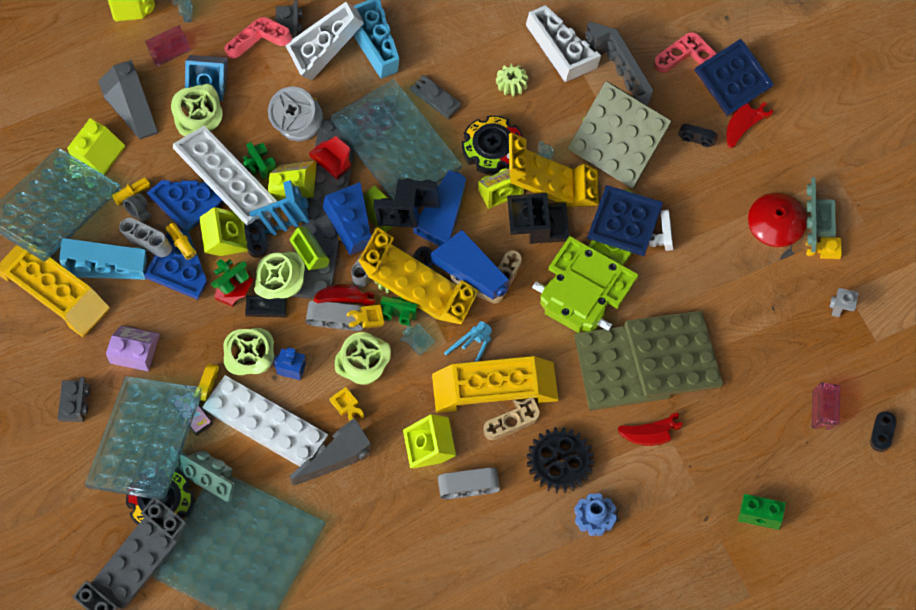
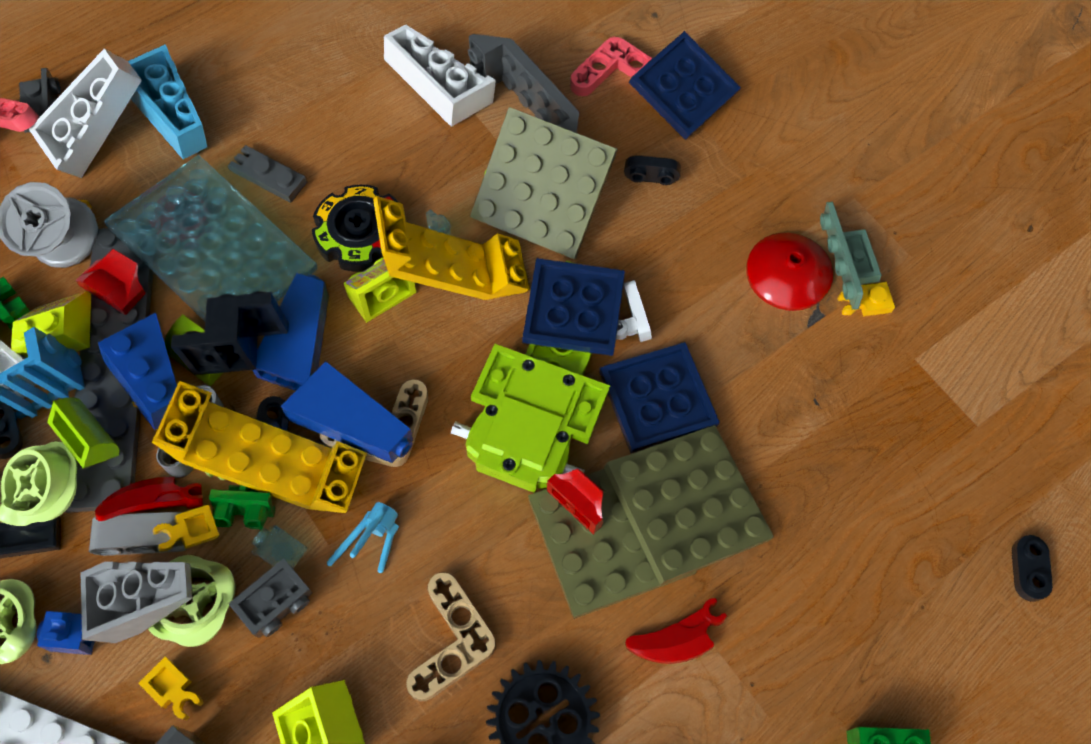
camera: 15 degrees left, 0 degrees up
(333, 348) = (130, 597): none -> light grey wedge
(411, 366) = (271, 599): none -> dark grey bracket
(494, 382) = (413, 604): yellow slope -> none
(512, 80) = (374, 133): yellowish green gear -> none
(538, 218) = (437, 322): black bracket -> none
(604, 337) = (579, 497): none -> red slope
(669, 286) = (658, 397): none -> dark blue plate
(742, 121) = (708, 142): red piece -> none
(826, 405) = (938, 544): clear pink hinge -> none
(844, 300) = (920, 373): light grey bracket -> none

